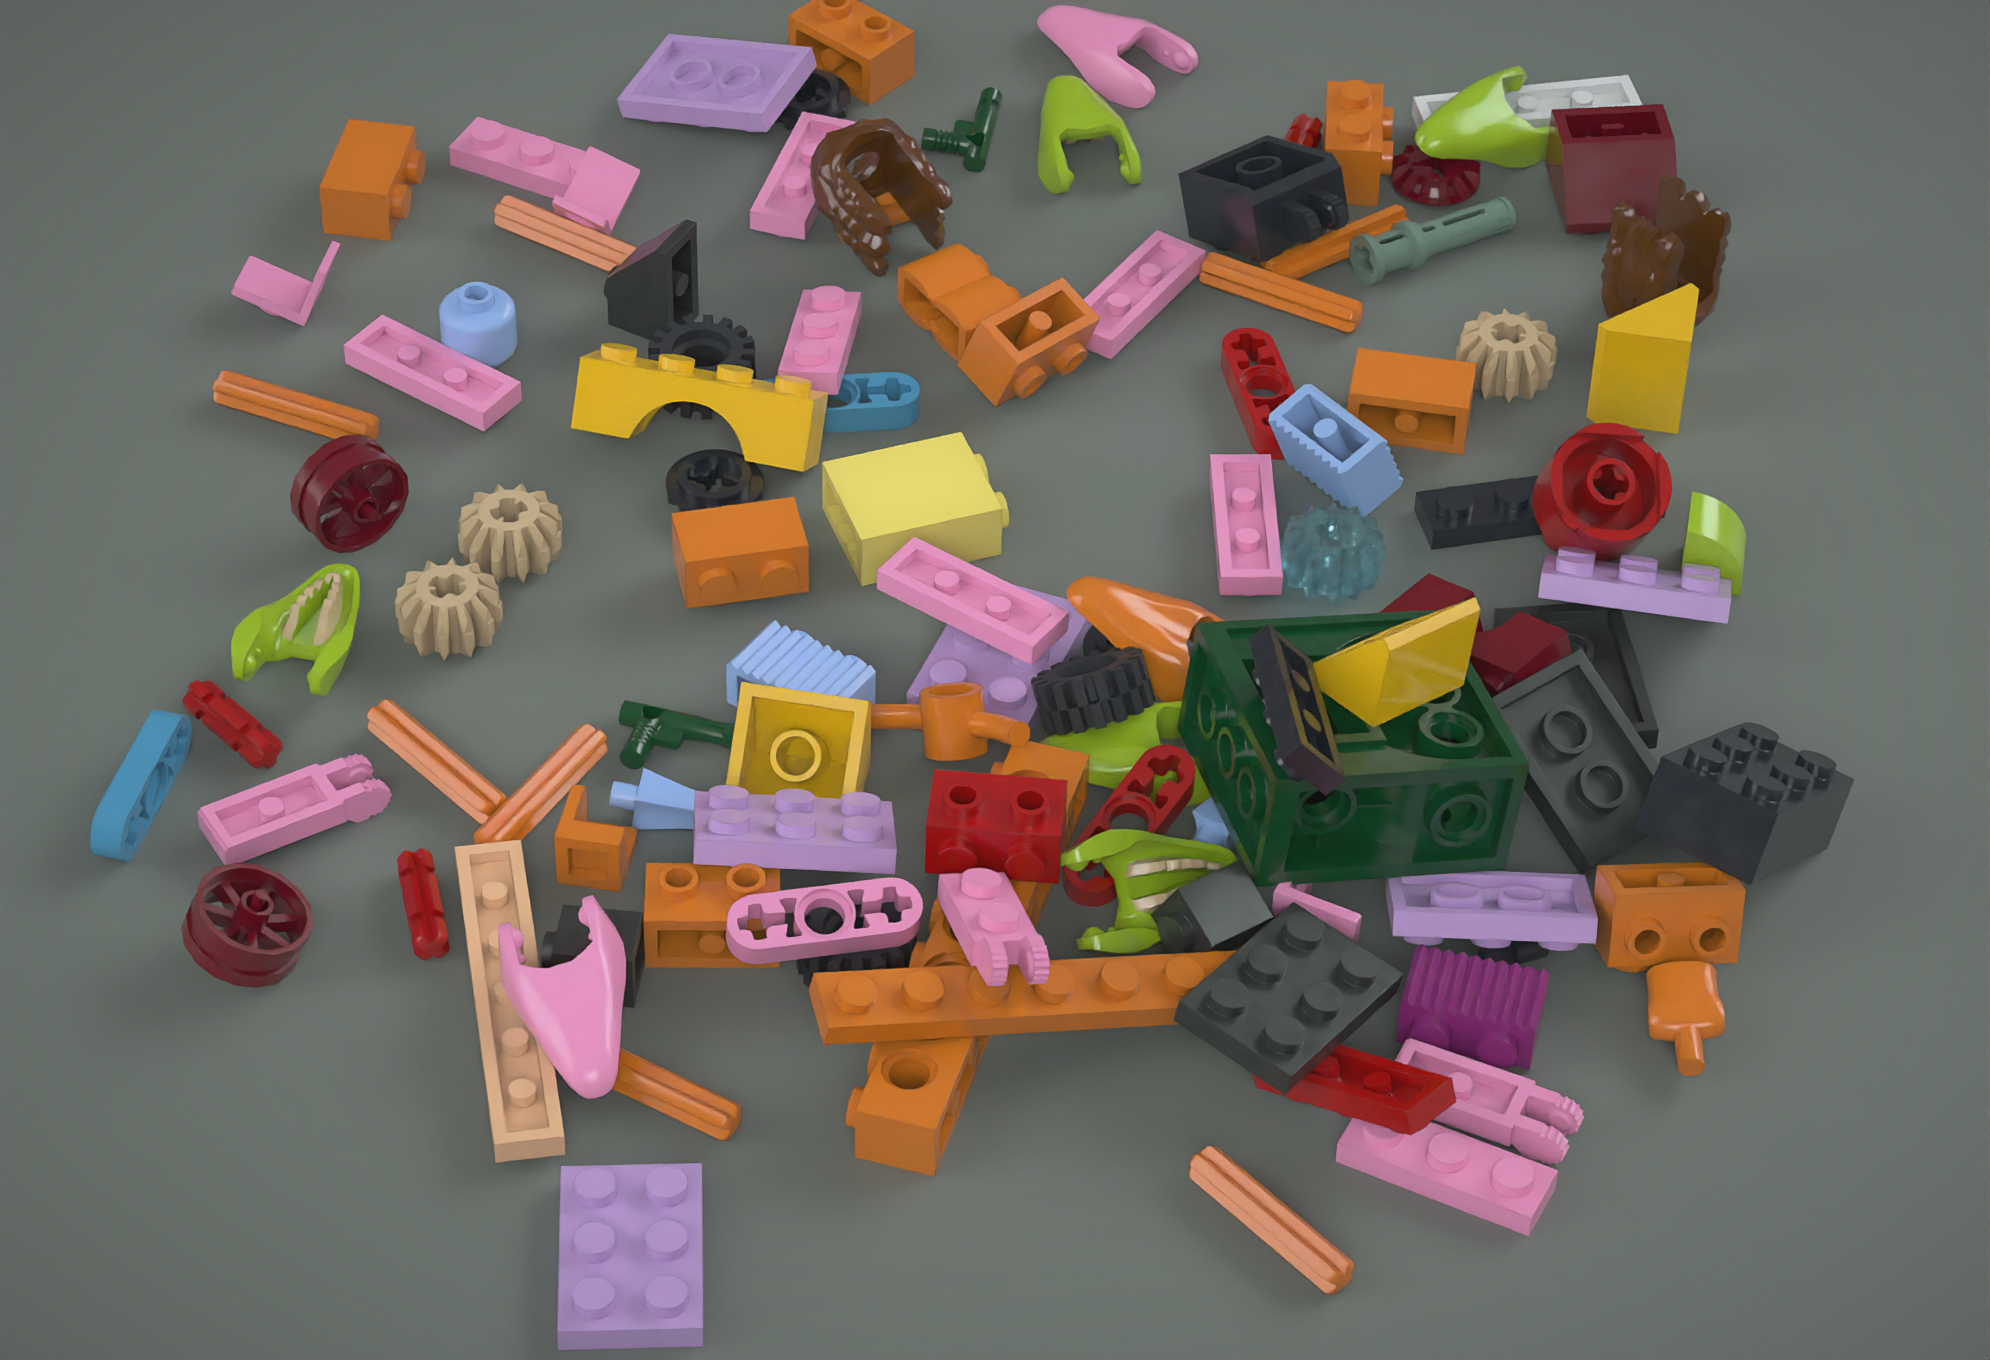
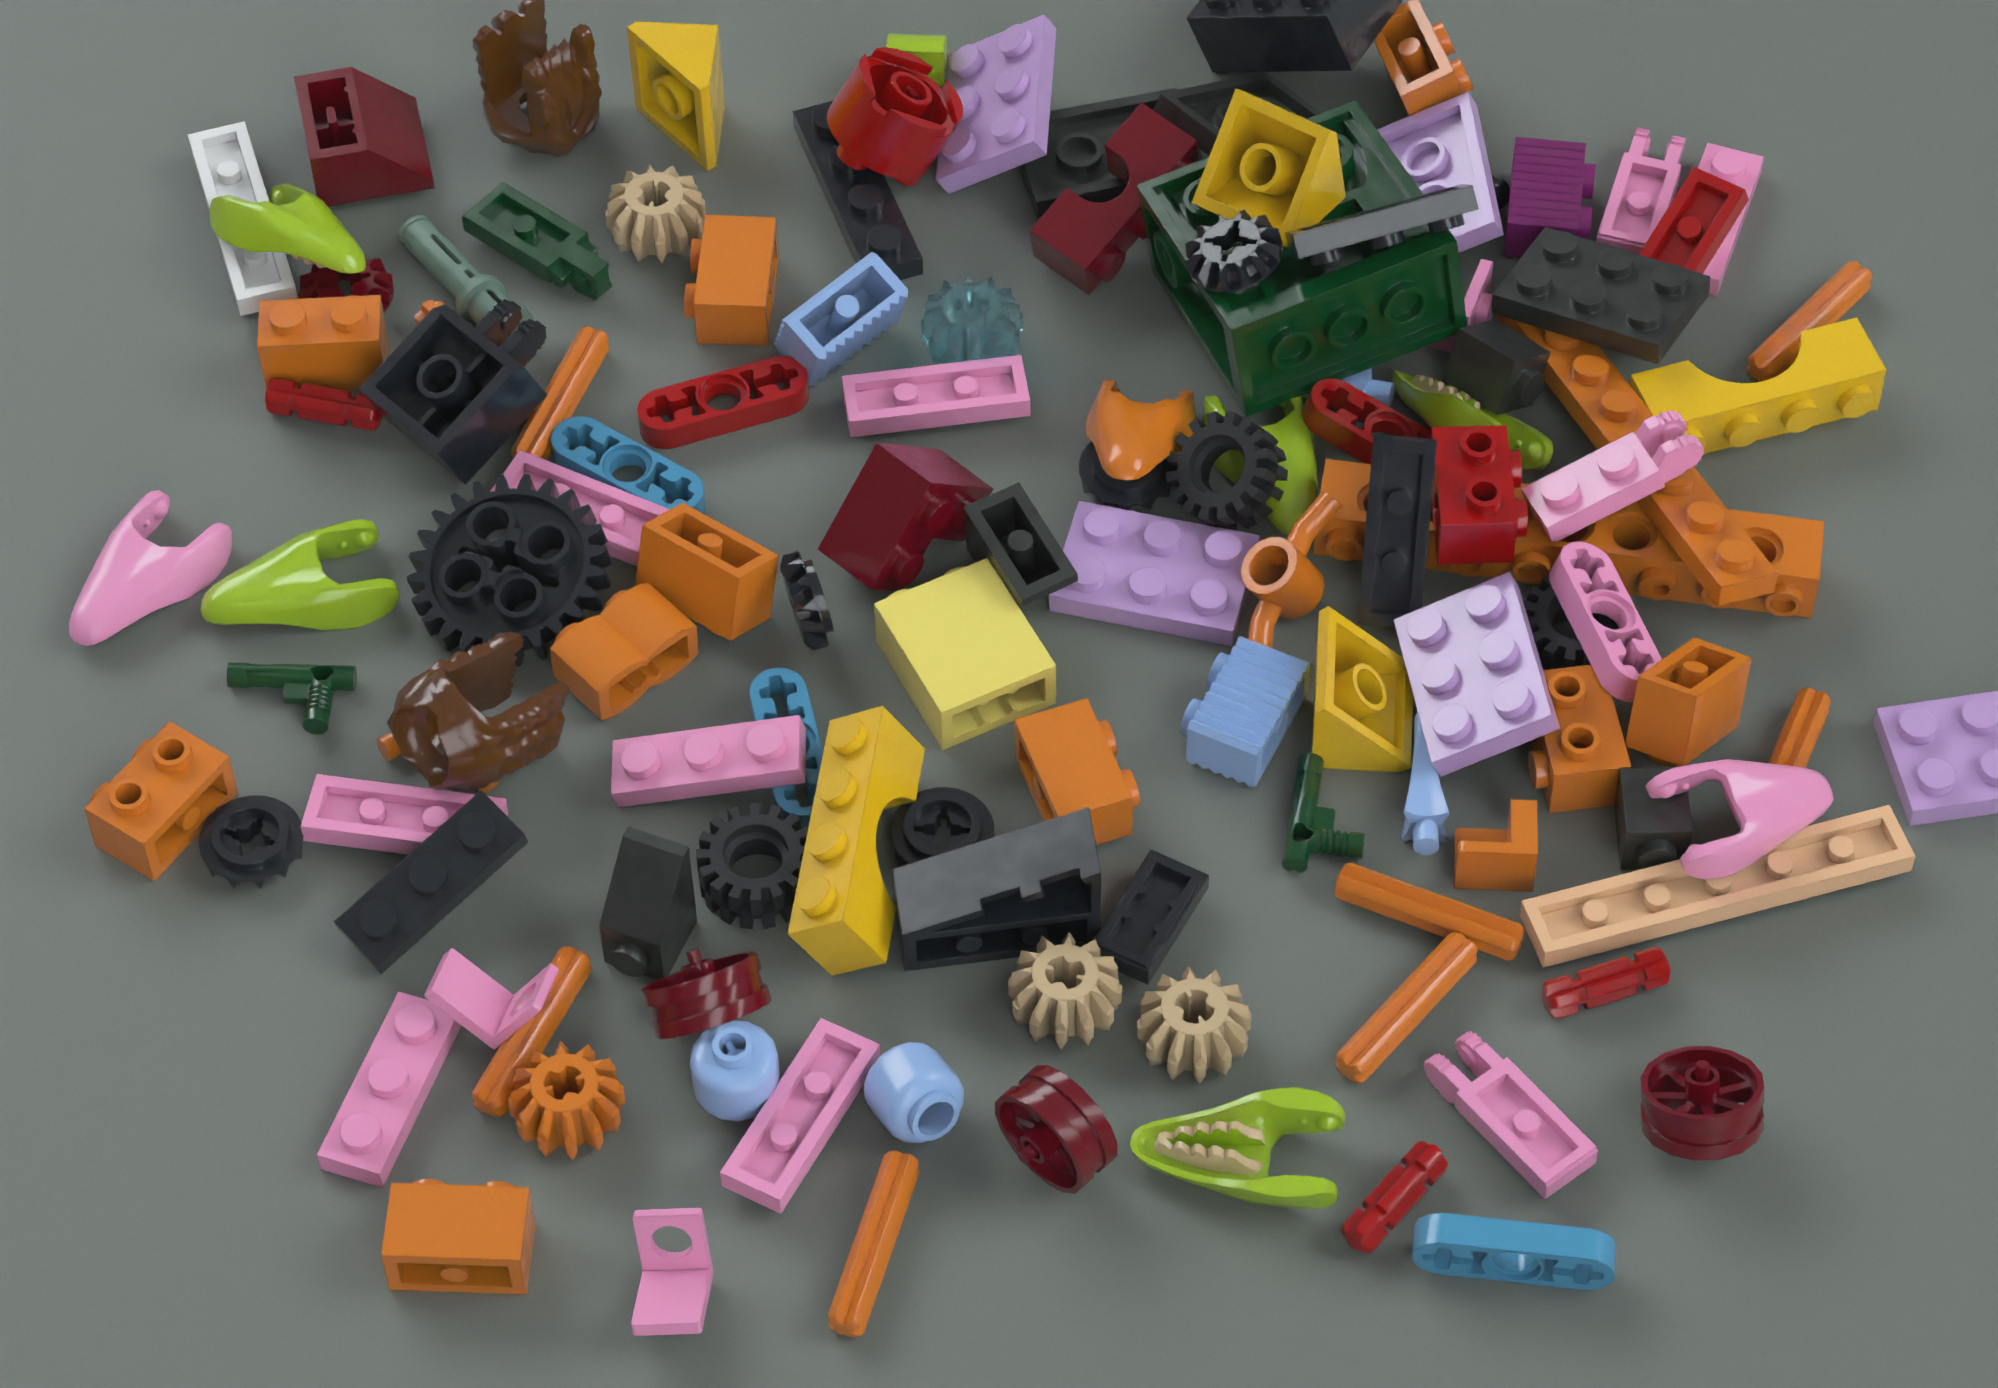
camera: 95 degrees left, 10 degrees up
(428, 431) = (914, 1093): none -> light blue head
(484, 241) = (566, 1100): none -> orange gear
(550, 304) = (706, 994): none -> dark red wheel
(582, 601) = (1151, 915): none -> black plate
(615, 501) = (1001, 895): none -> black wedge
(711, 973) = (1687, 702): none -> orange brick
(717, 82) = (258, 910): lavender plate -> none
(725, 177) = (431, 882): none -> black plate
(972, 600) = (1129, 568): bright pink plate -> none
(985, 423) = (806, 600): none -> black gear
(1004, 750) = (1396, 528): none -> black plate
(1013, 534) = (1017, 544): none -> pearl dark grey slope
(1066, 233) = (533, 526): none -> black gear
(1083, 465) = (896, 511): none -> dark red brick
(1172, 1200) = (1830, 380): none -> yellow arch
(1209, 305) = (616, 451): none -> dark azure beam
(1308, 625) = (1247, 263): none -> black gear
(1480, 284) = (538, 240): none -> dark green hinge
(1685, 1010) = (1508, 70): orange piece -> none

